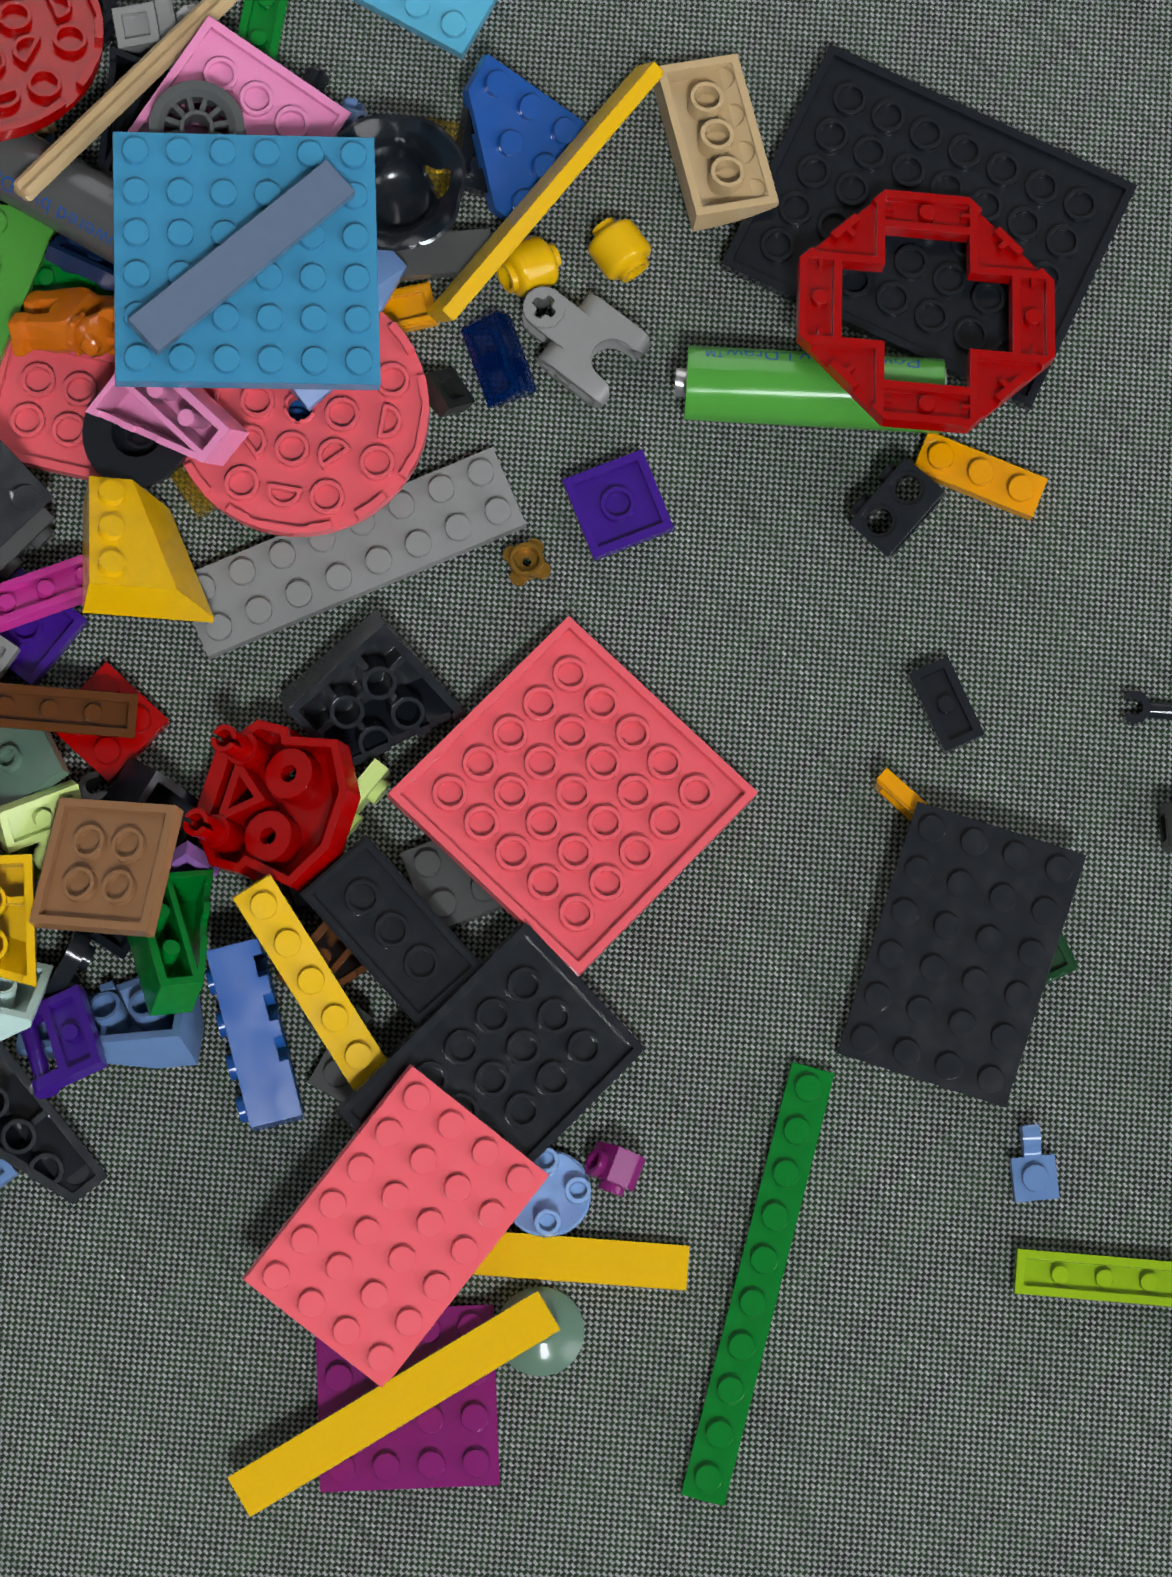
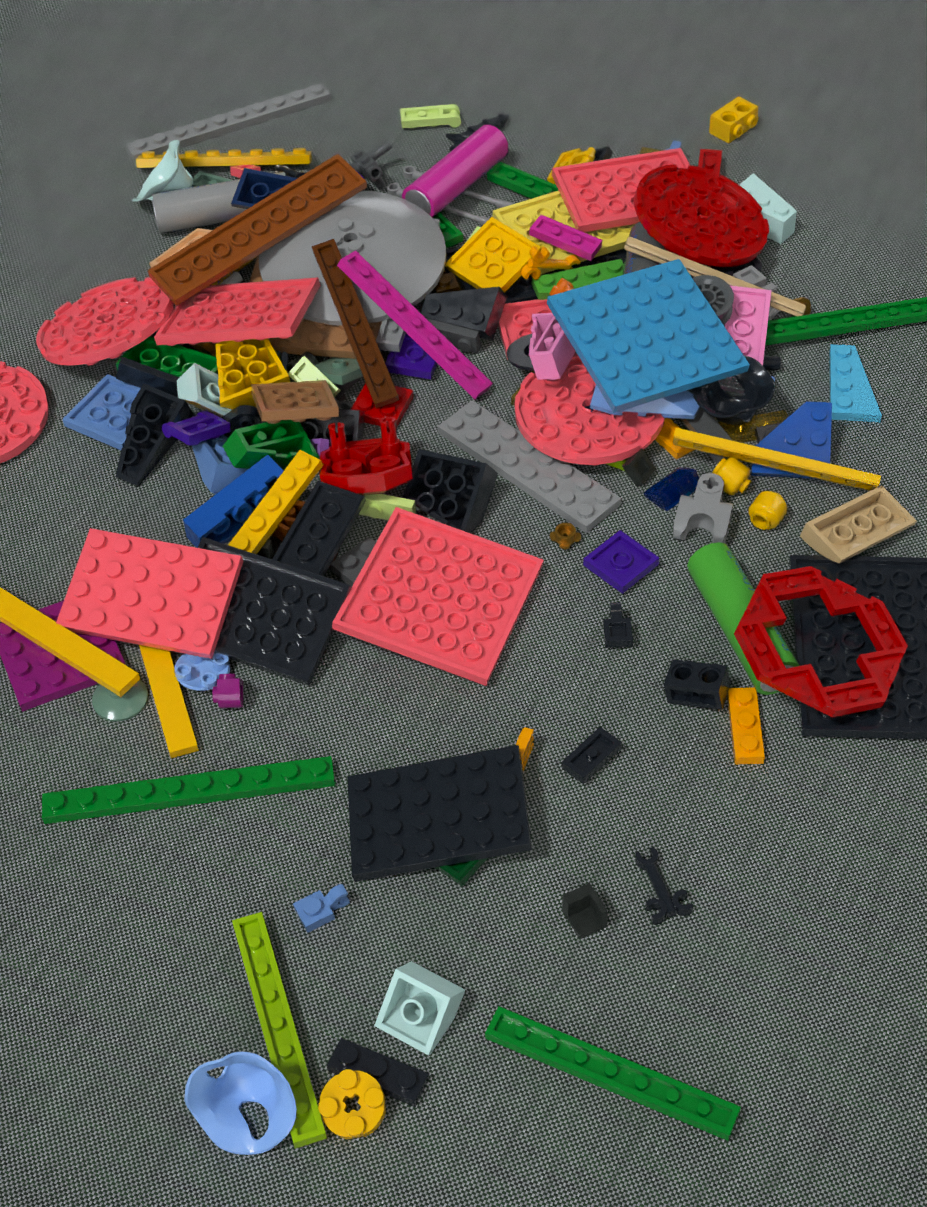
camera: 70 degrees right, 30 degrees down
(136, 556) = (471, 367): yellow wedge -> none
(241, 258) = (645, 322): sand blue tile -> none
(744, 570) = (617, 629): none -> black plate

